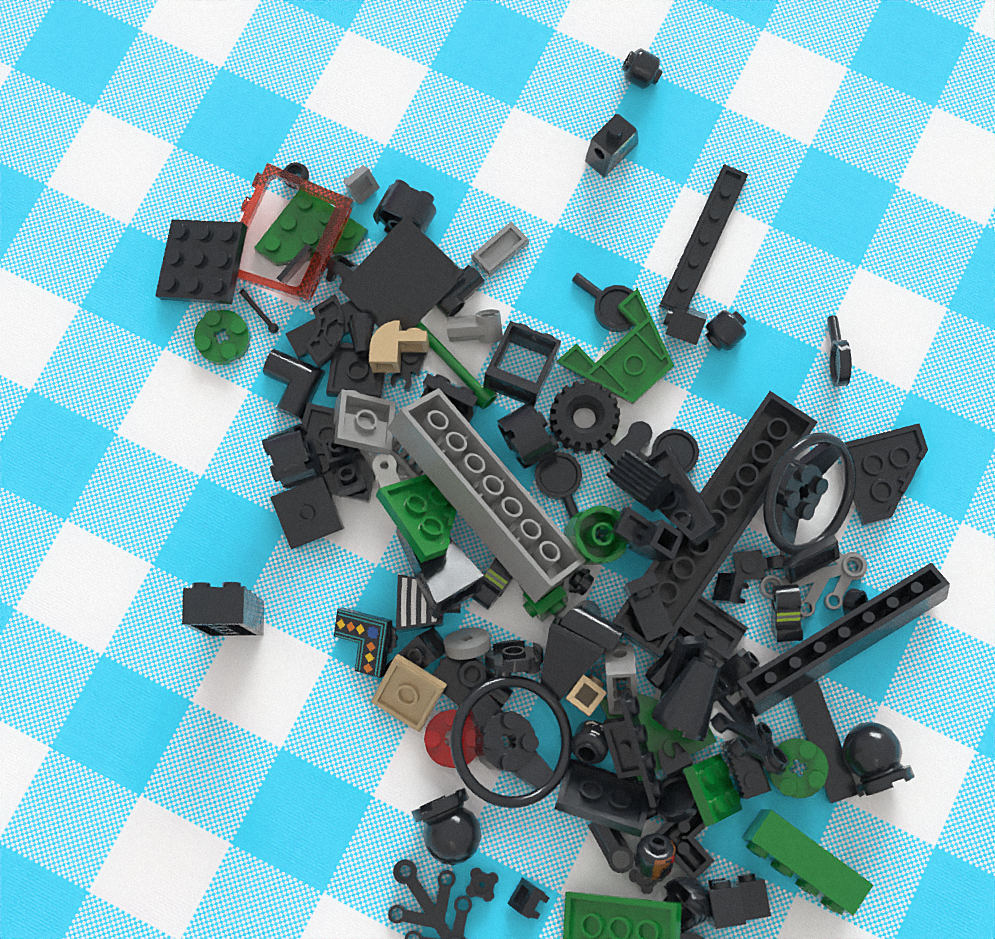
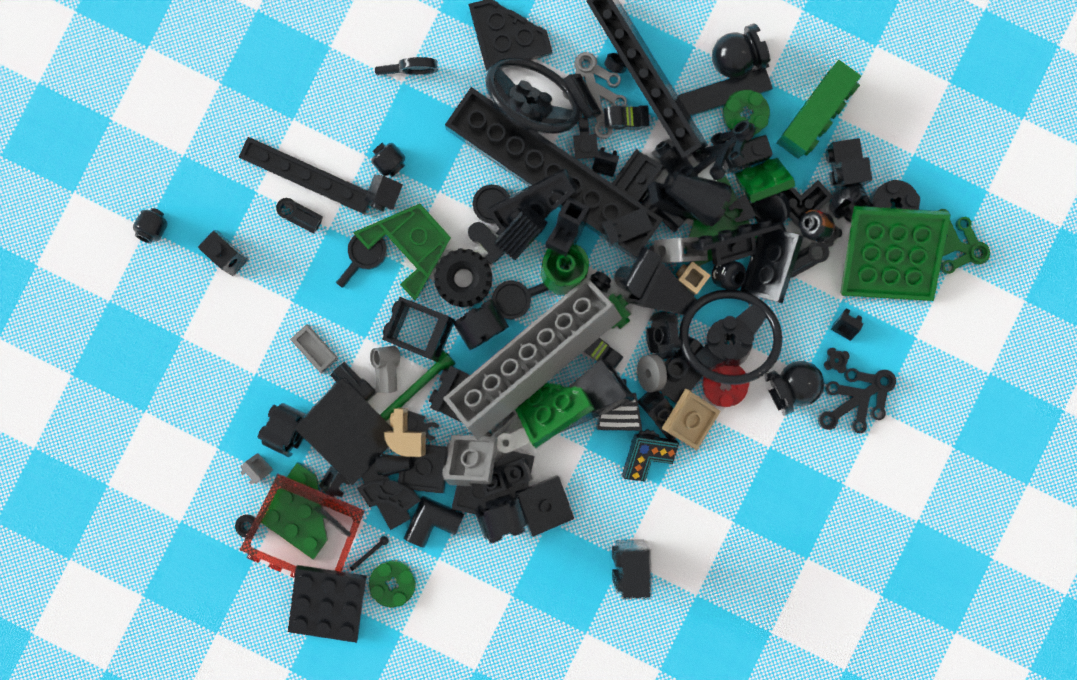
camera: 90 degrees left, 10 degrees up
(657, 230) = (300, 216): none -> black piece

